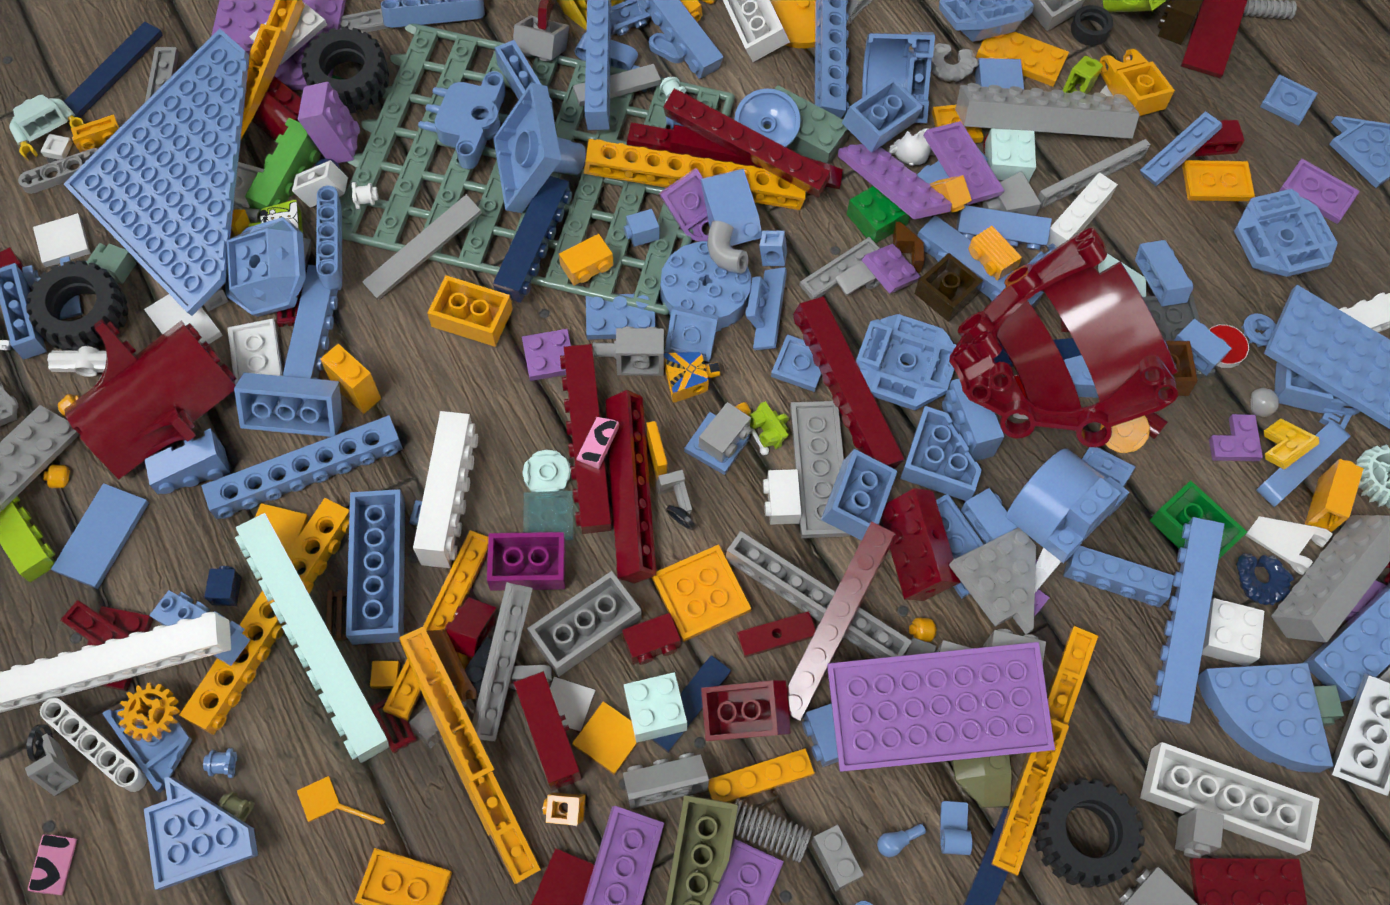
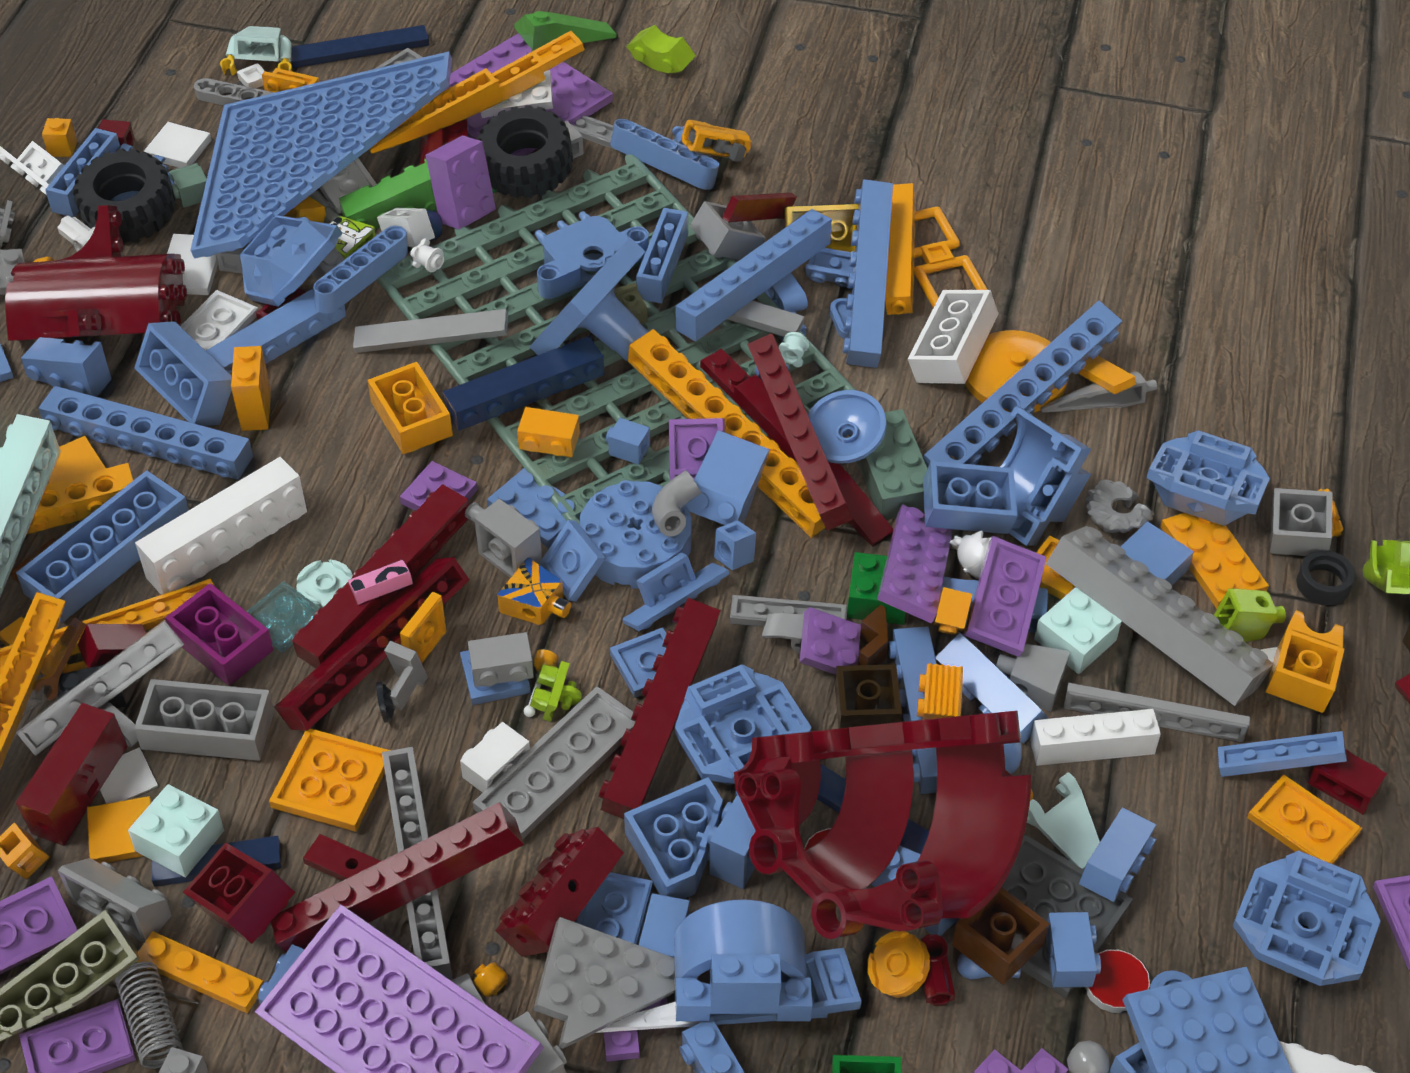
camera: 45 degrees right, 15 degrees down
(651, 639) = (244, 779): dark red brick -> none
(859, 494) = (555, 802): medium blue brick -> none

